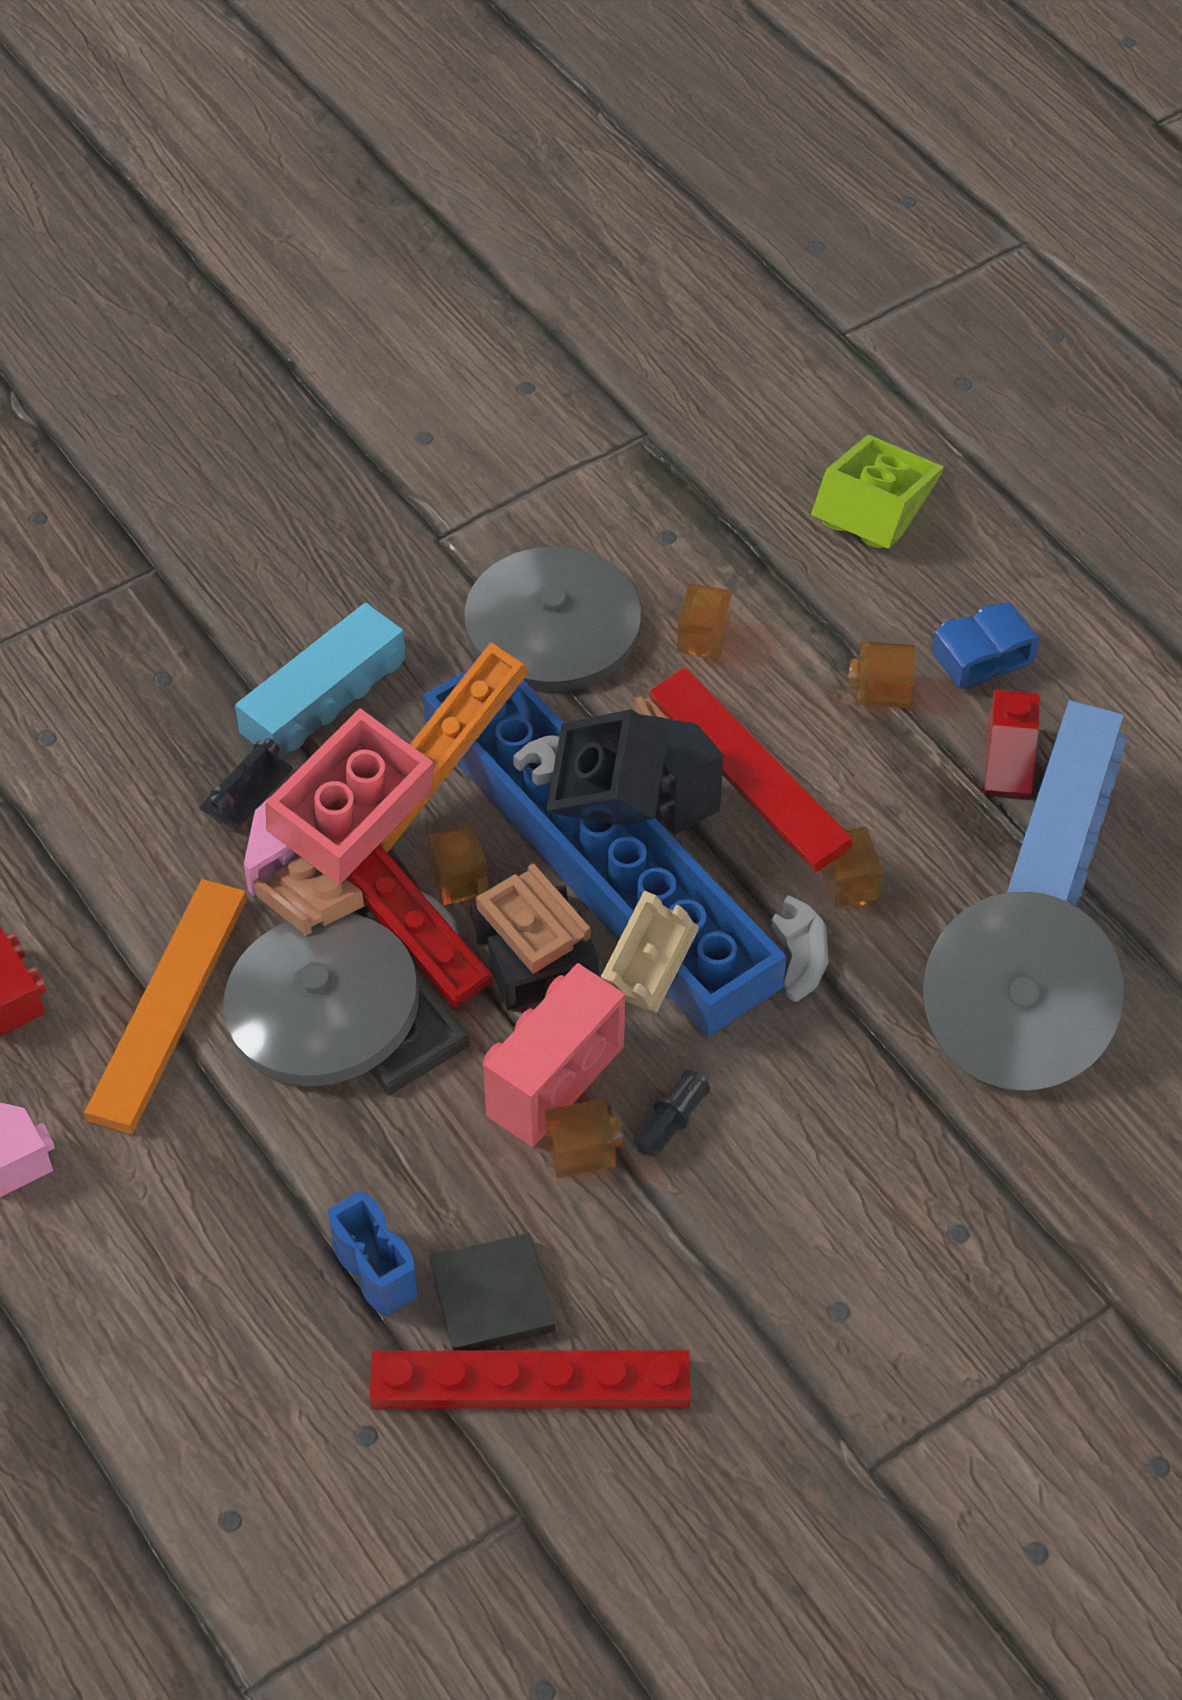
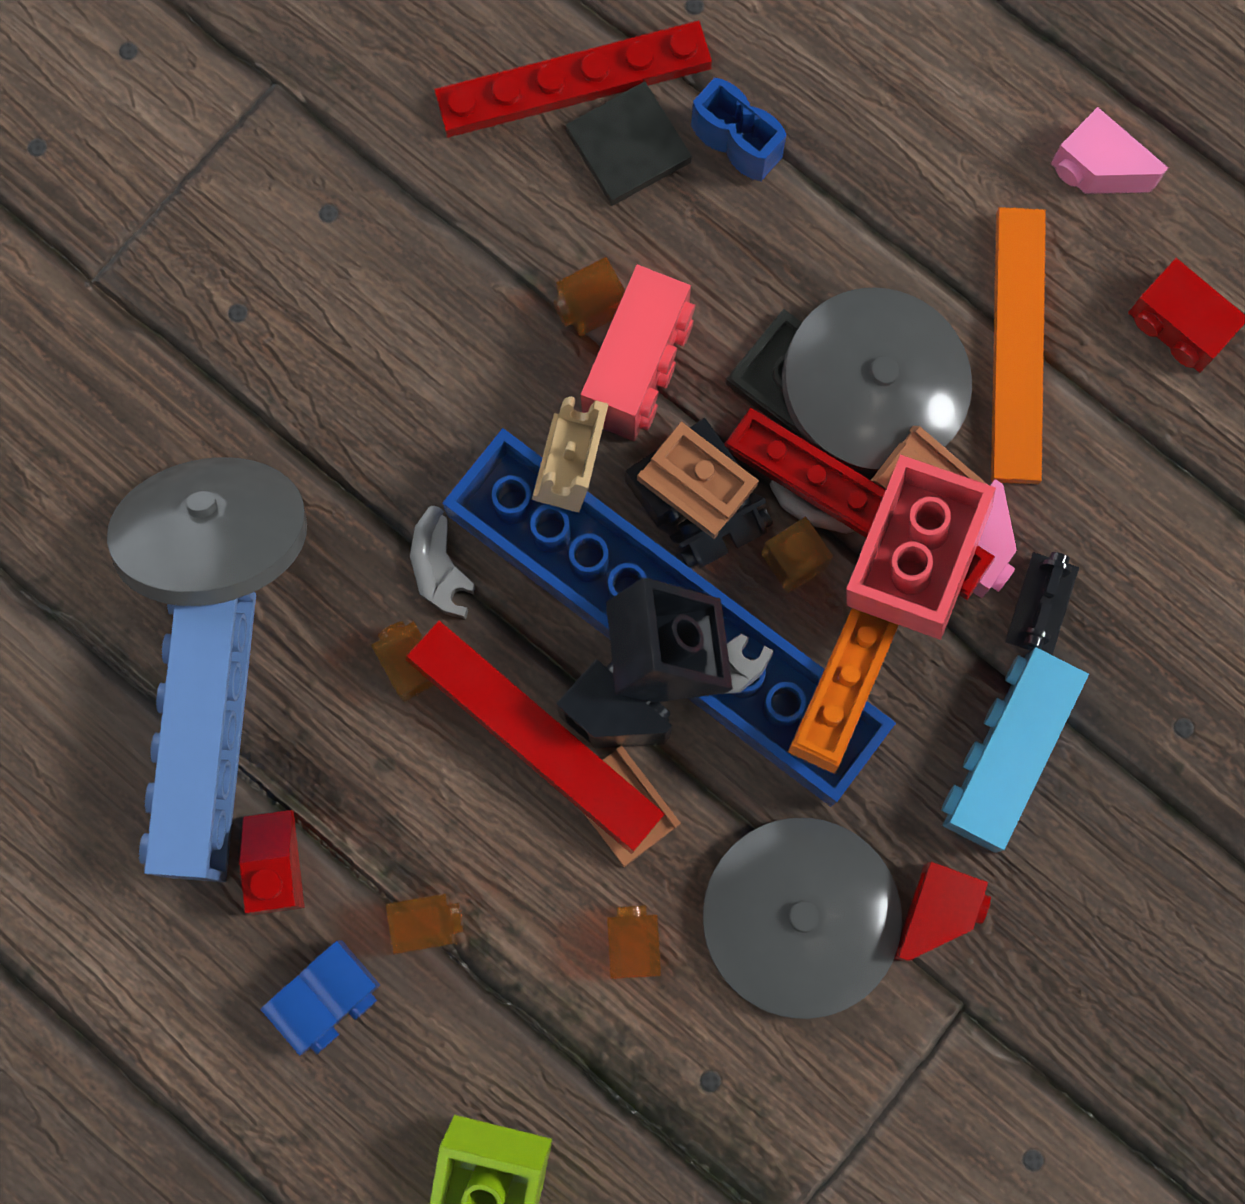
camera: 165 degrees right, 25 degrees up
(434, 588) = (941, 910): none -> red slope
(671, 1114) = (517, 346): black axle -> none

